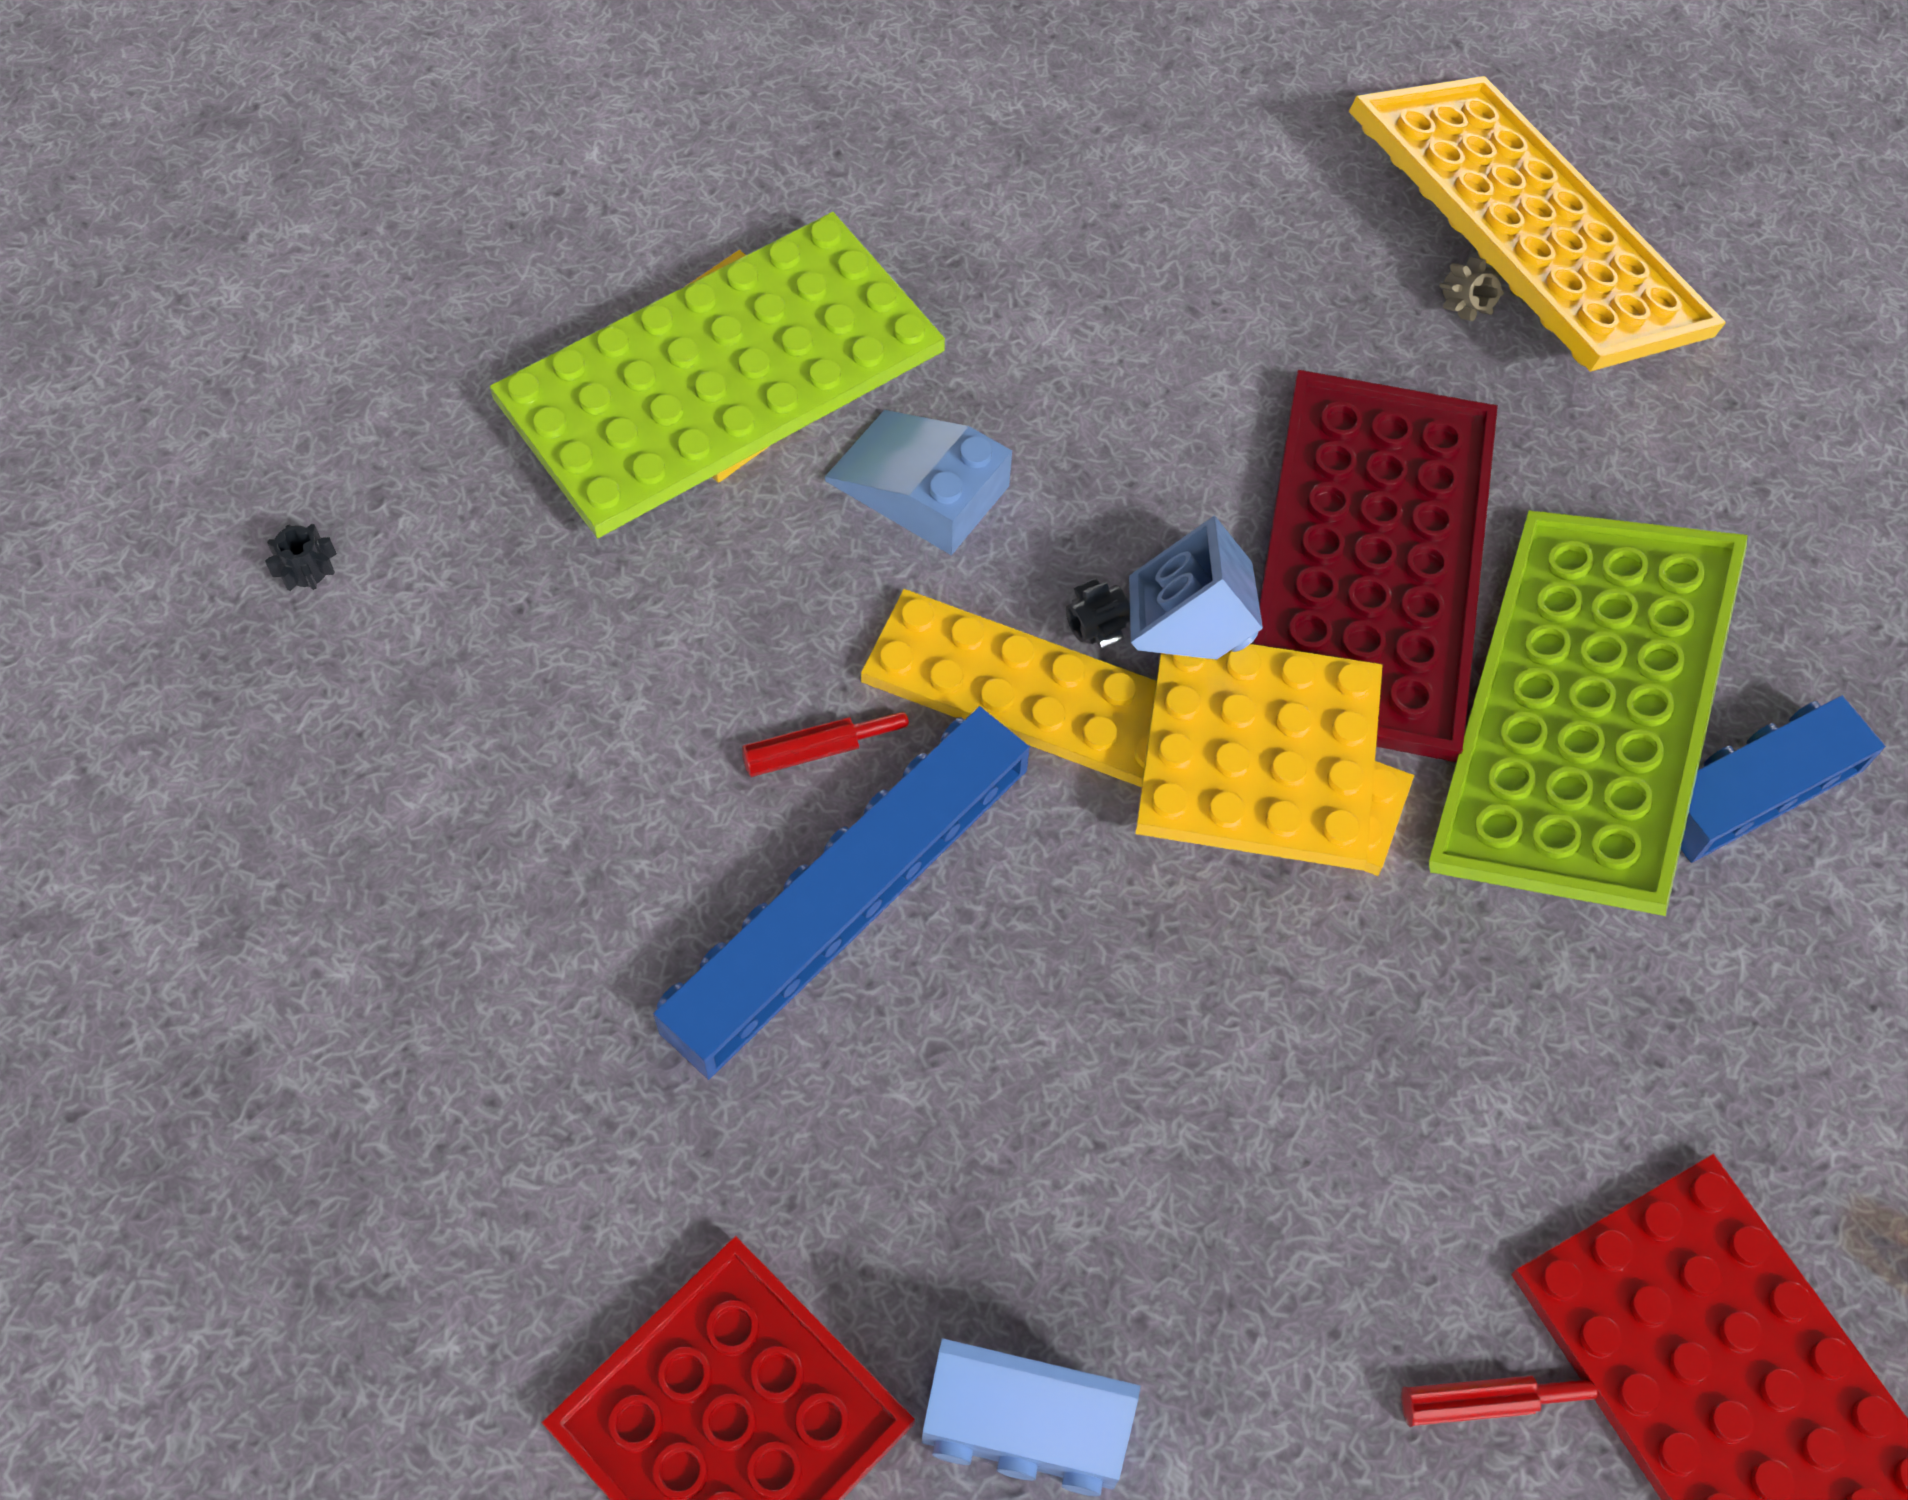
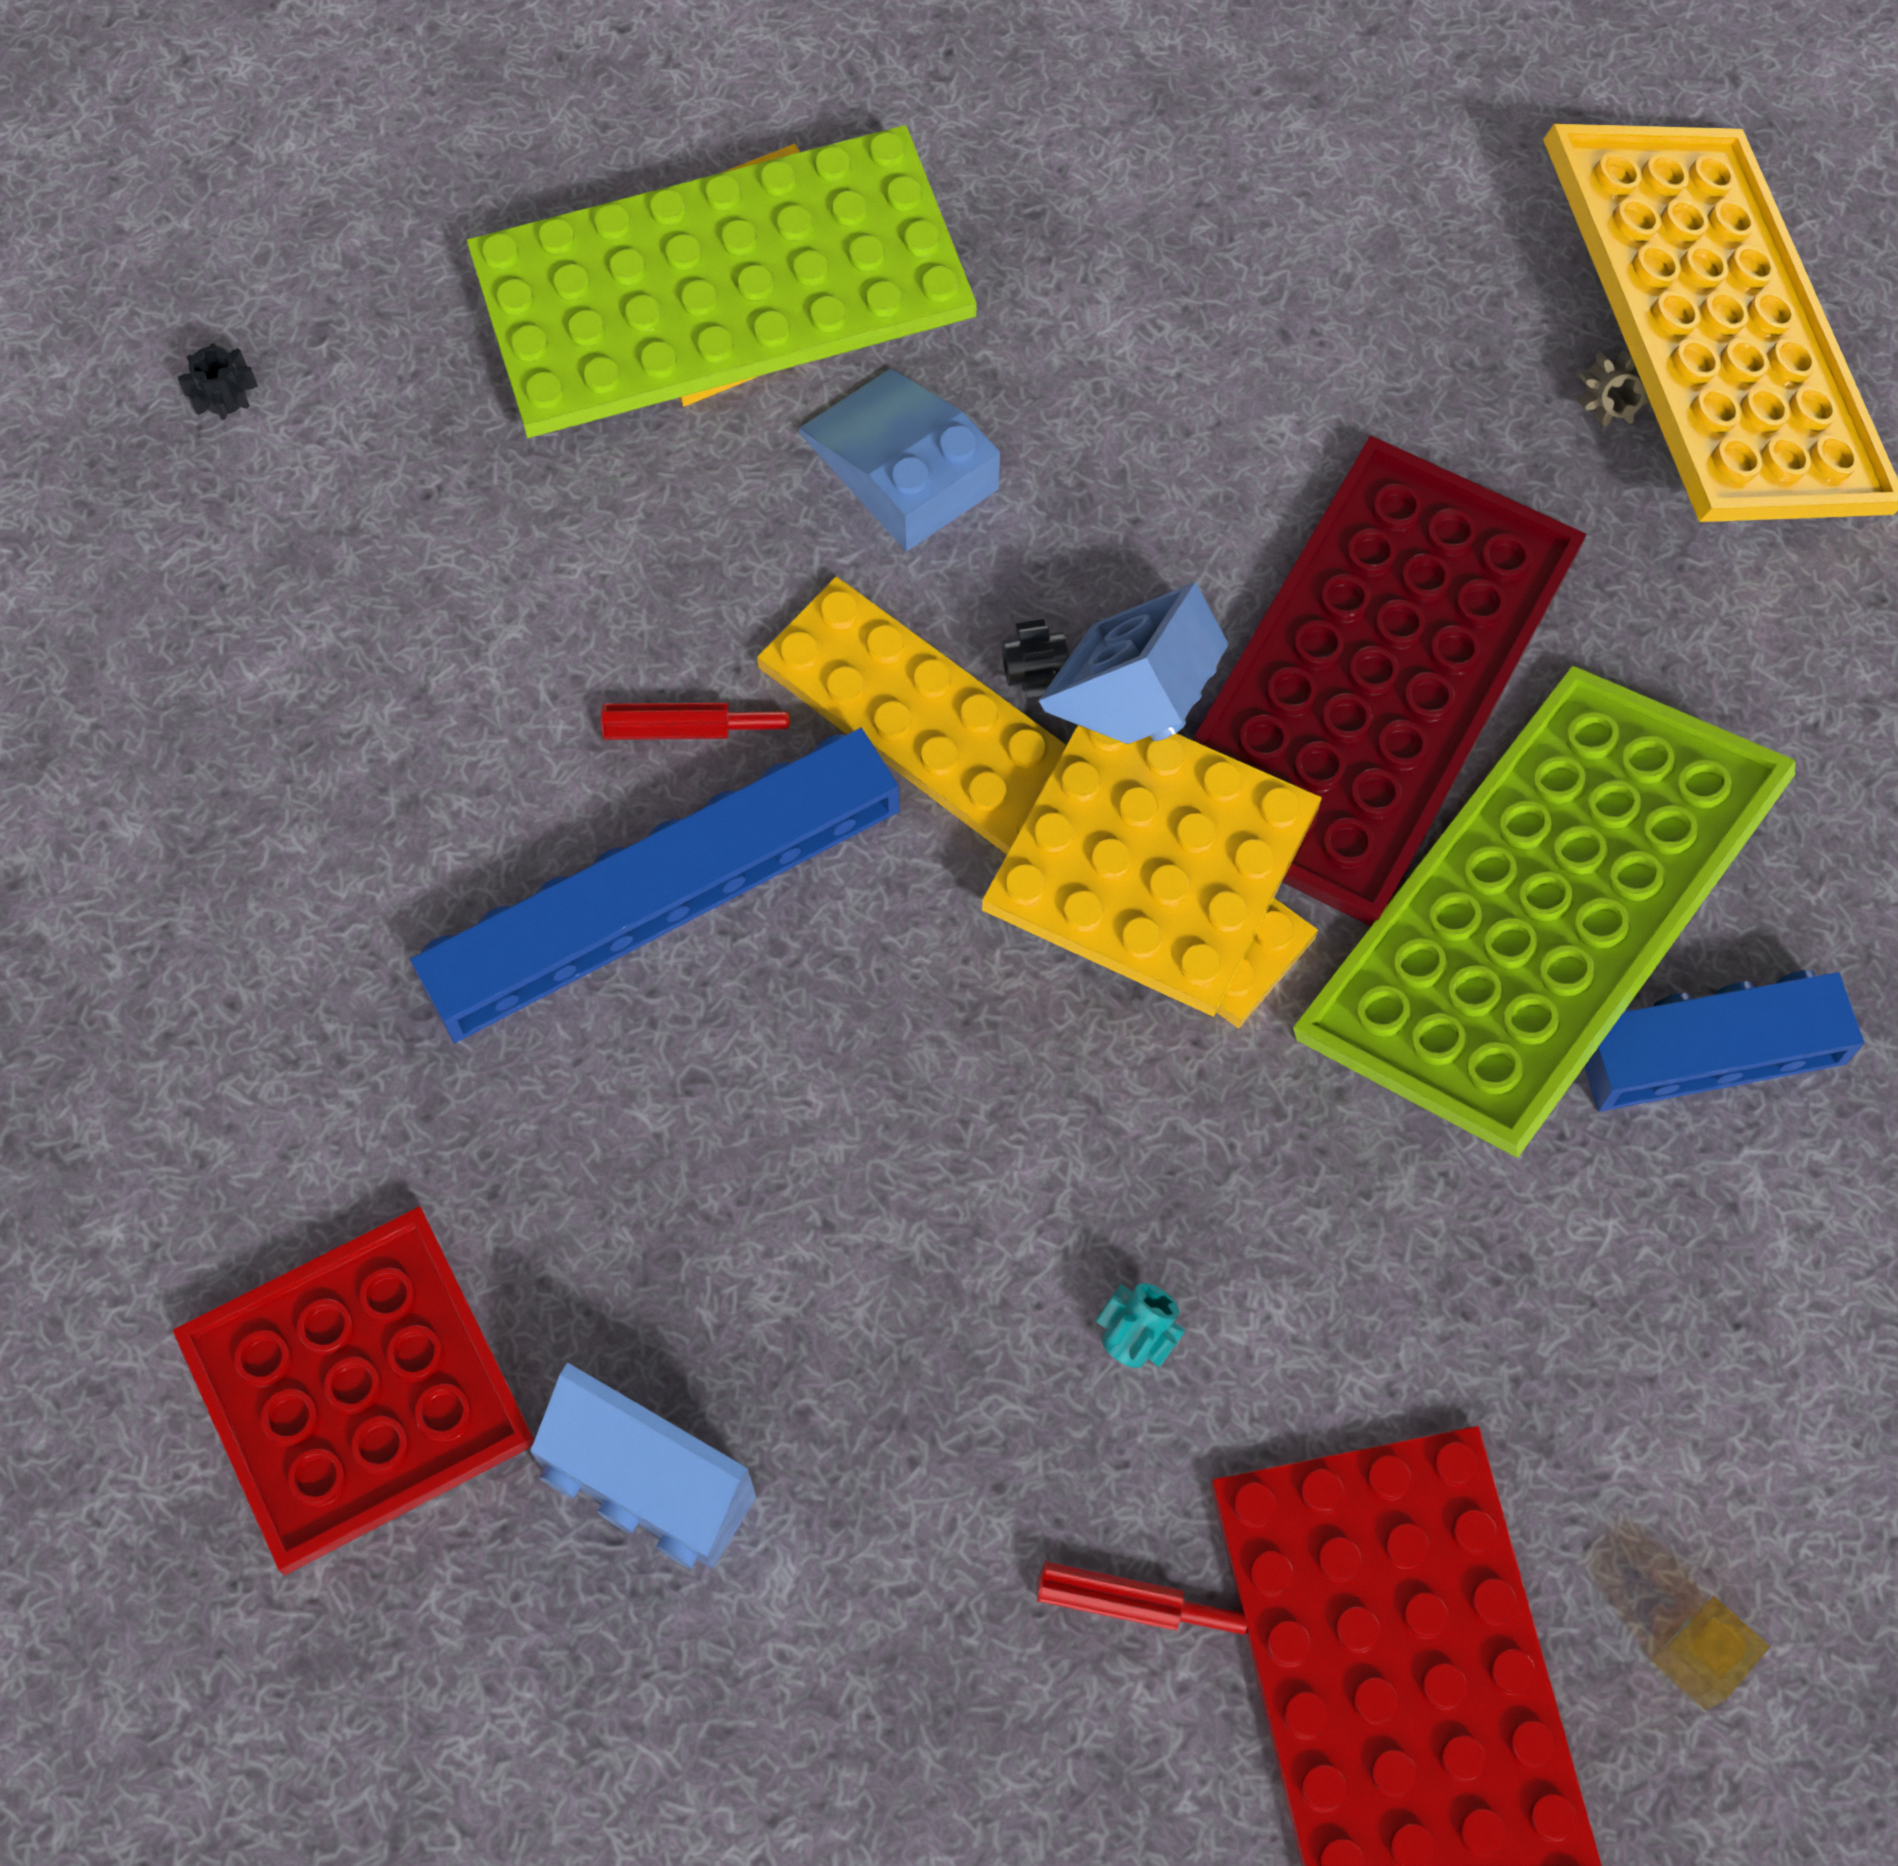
camera: 20 degrees right, 5 degrees up
(1406, 1152) = (1140, 1325): none -> teal gear

